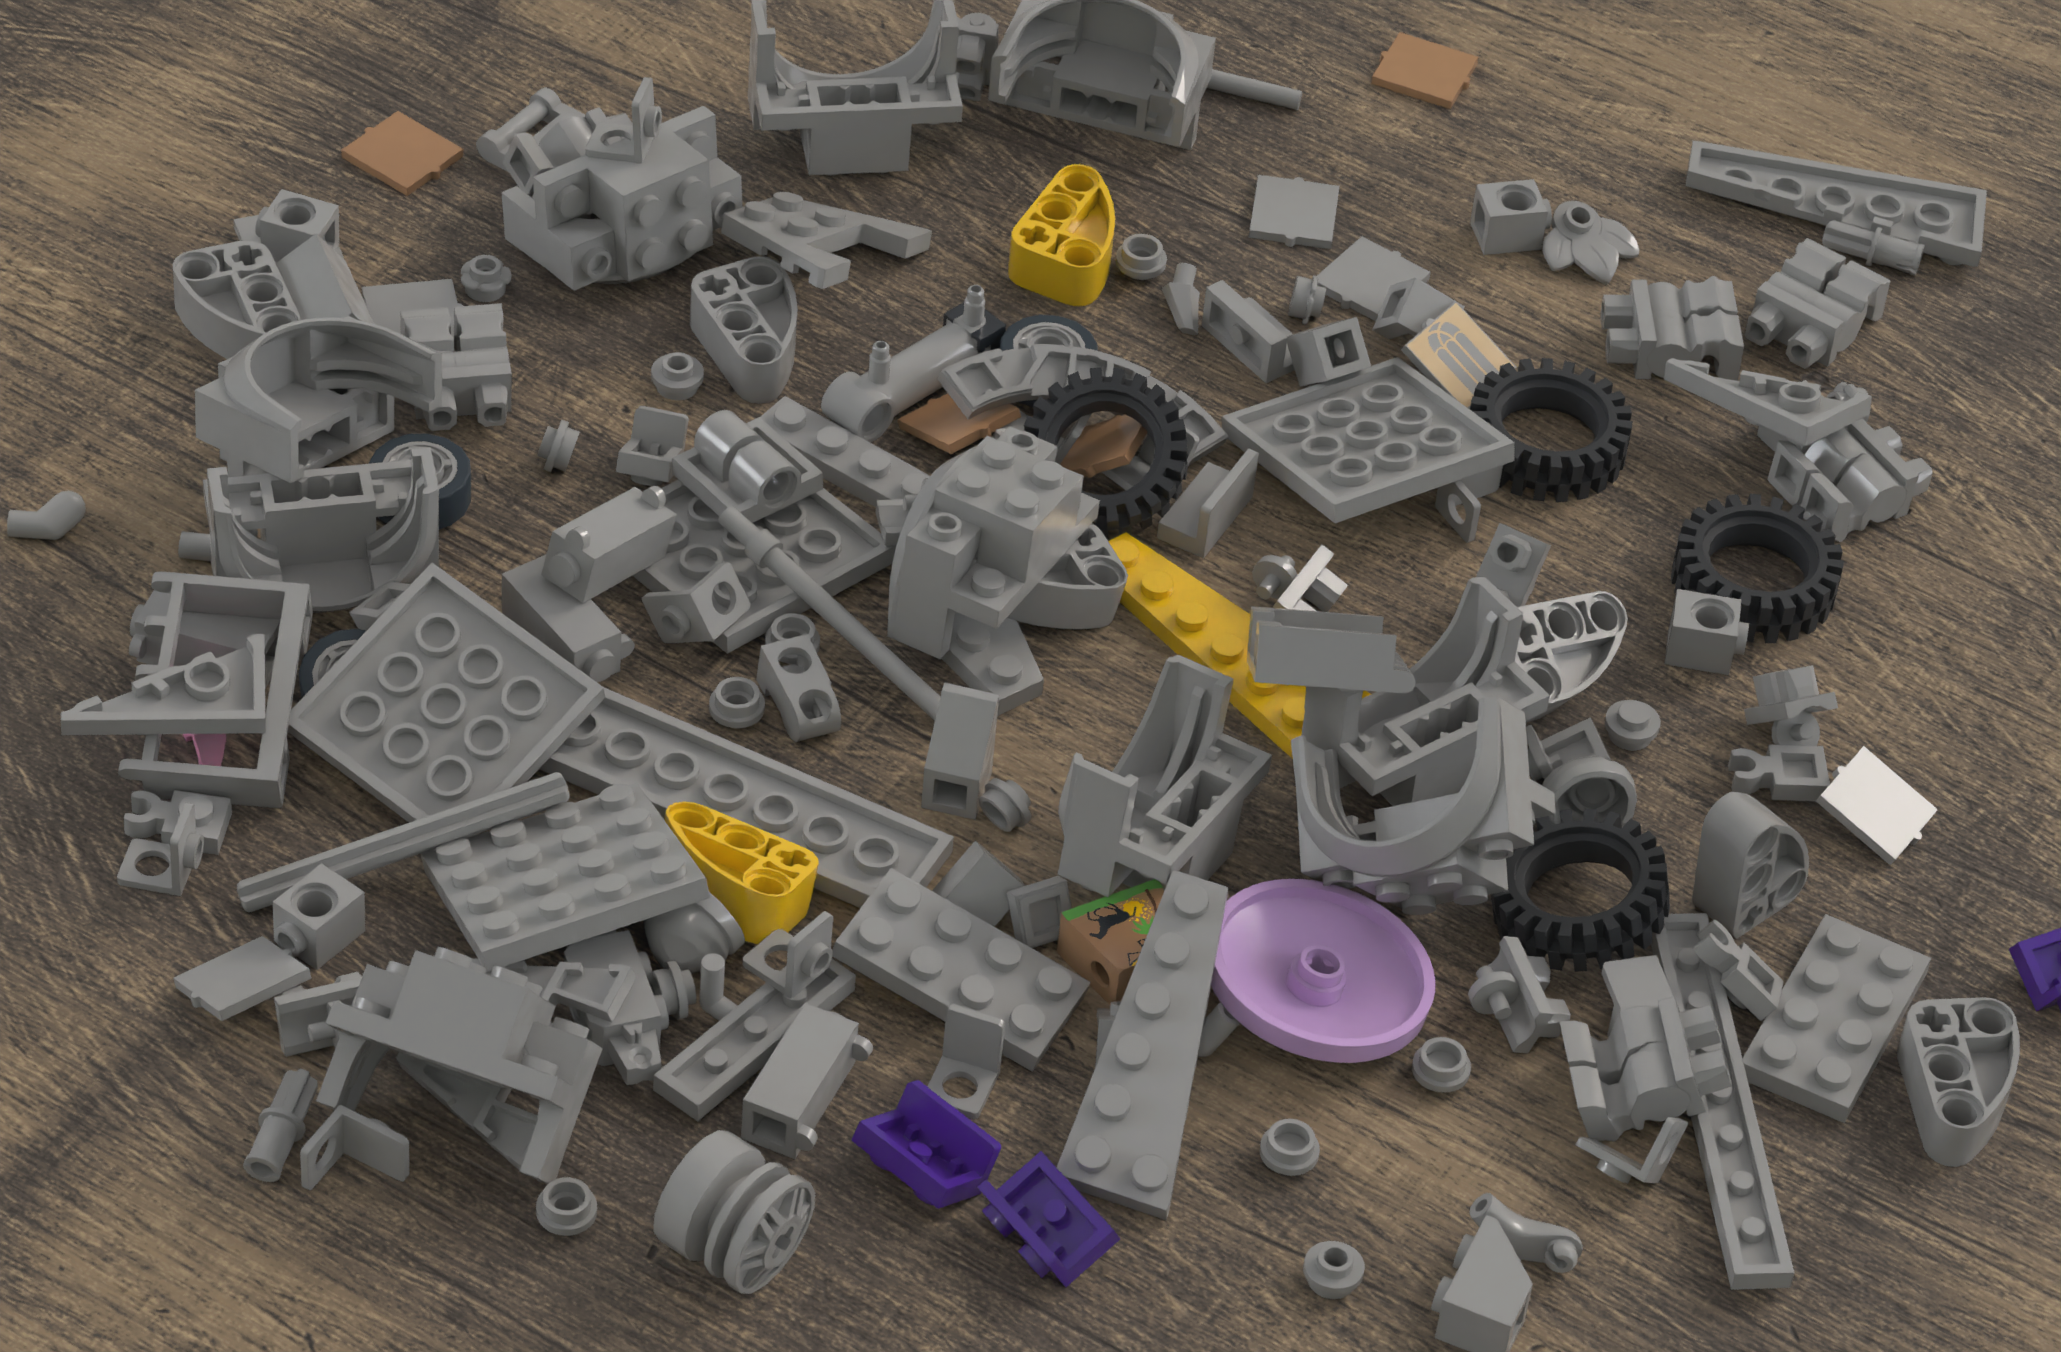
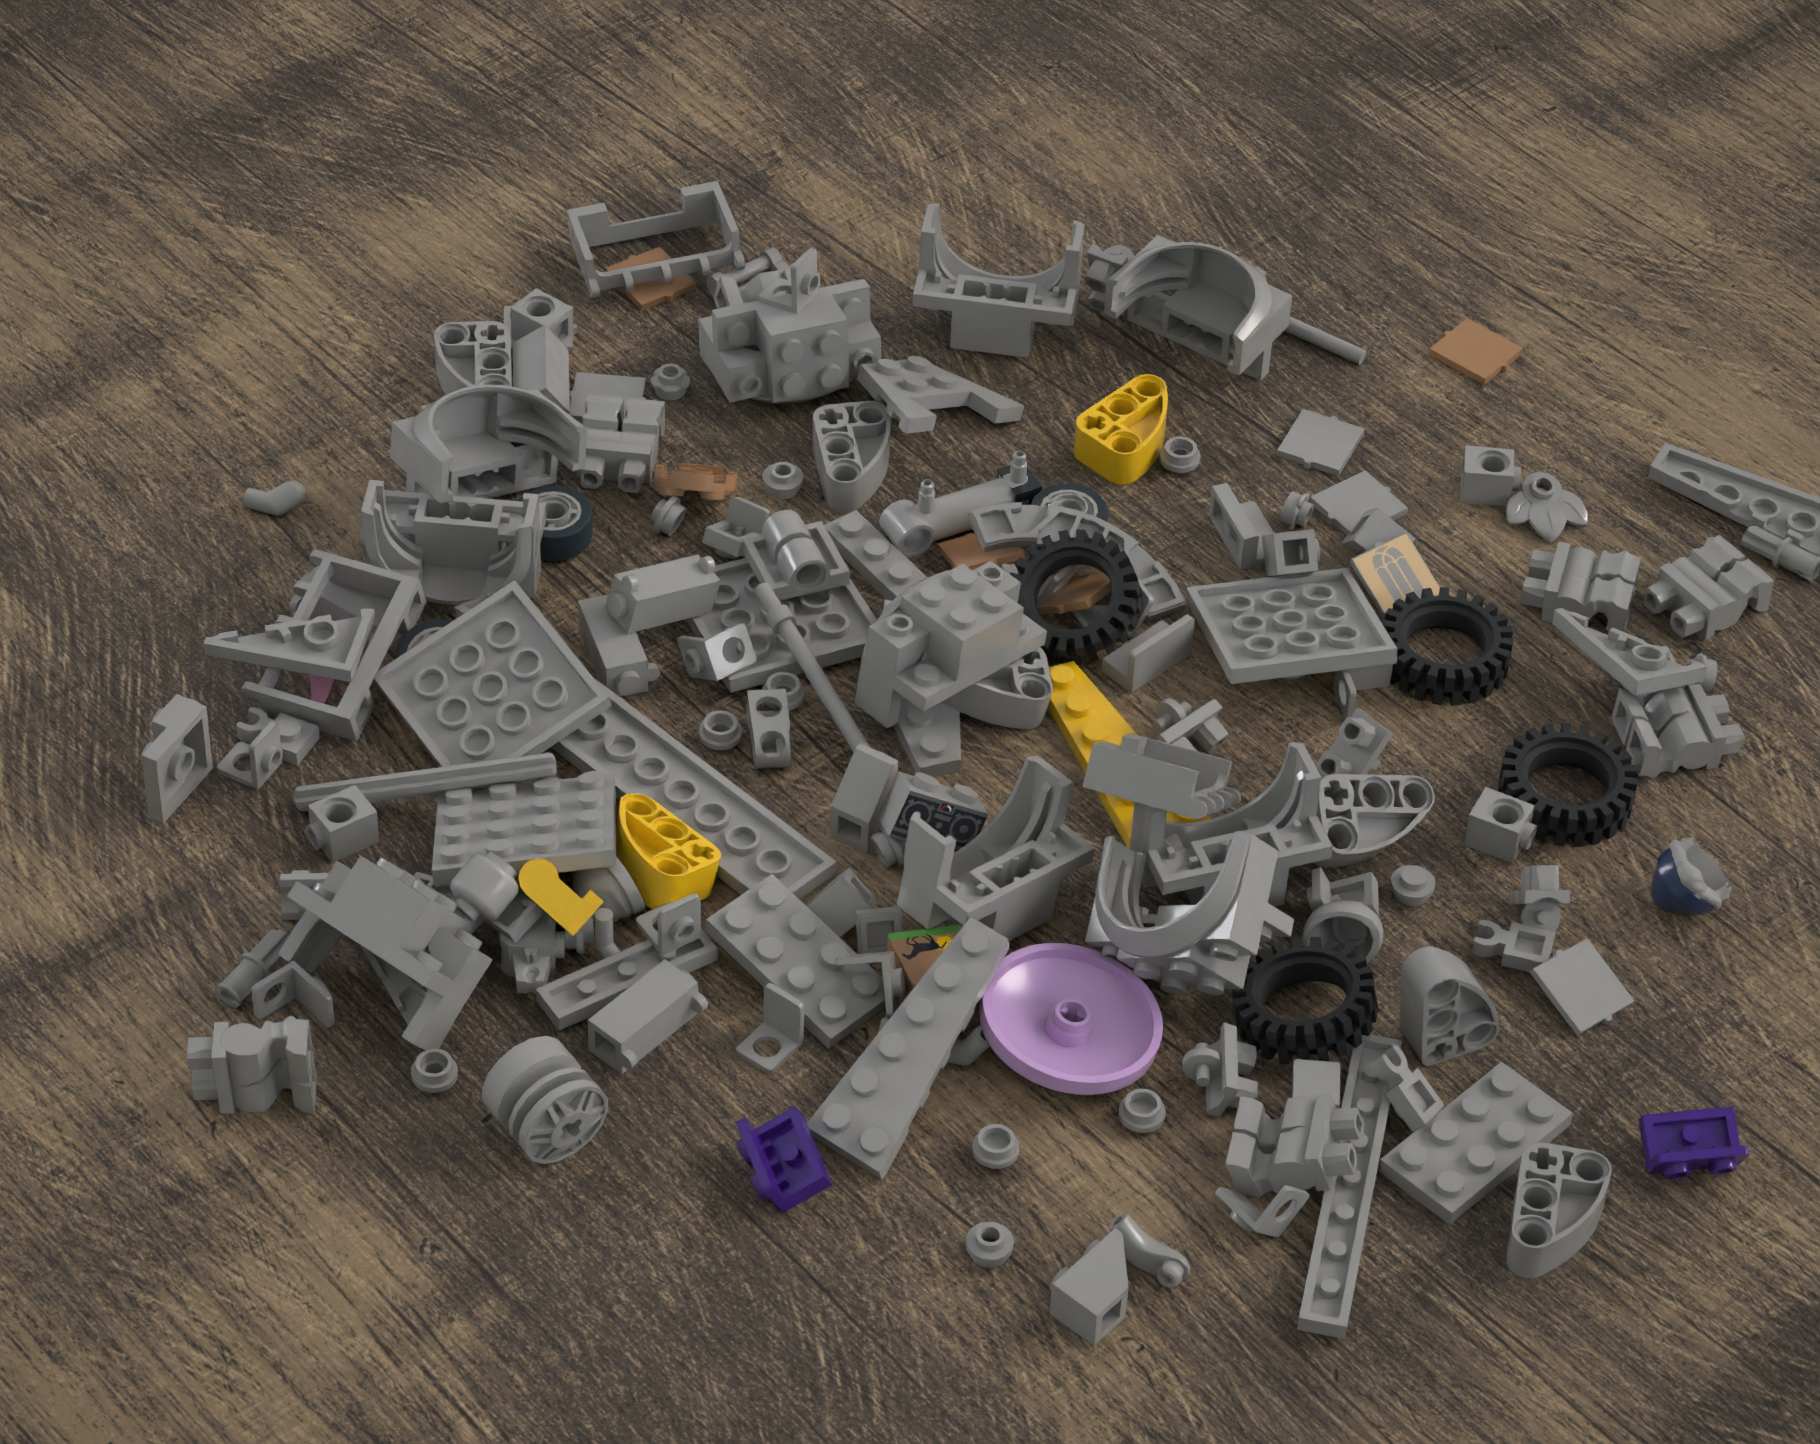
camera: 20 degrees right, 0 degrees up
(73, 871) = (177, 756): none -> light grey plate
(242, 978) = (271, 856): light grey piece -> none
(342, 1245) = (253, 1065): none -> light grey hips
(434, 50) = (700, 206): none -> light grey hinge
(563, 957) = (484, 887): none -> light grey head
(577, 391) = (695, 477): none -> medium nougat plate
(632, 940) = (542, 884): none -> yellow leg
(929, 1147) = (716, 1085): dark purple bracket -> none
(1038, 745) = (946, 809): none -> brick
(1093, 965) = (892, 977): none -> light grey bracket
(1183, 298) = (1199, 492): light grey bar -> none
(1942, 655) = (1688, 880): none -> hair

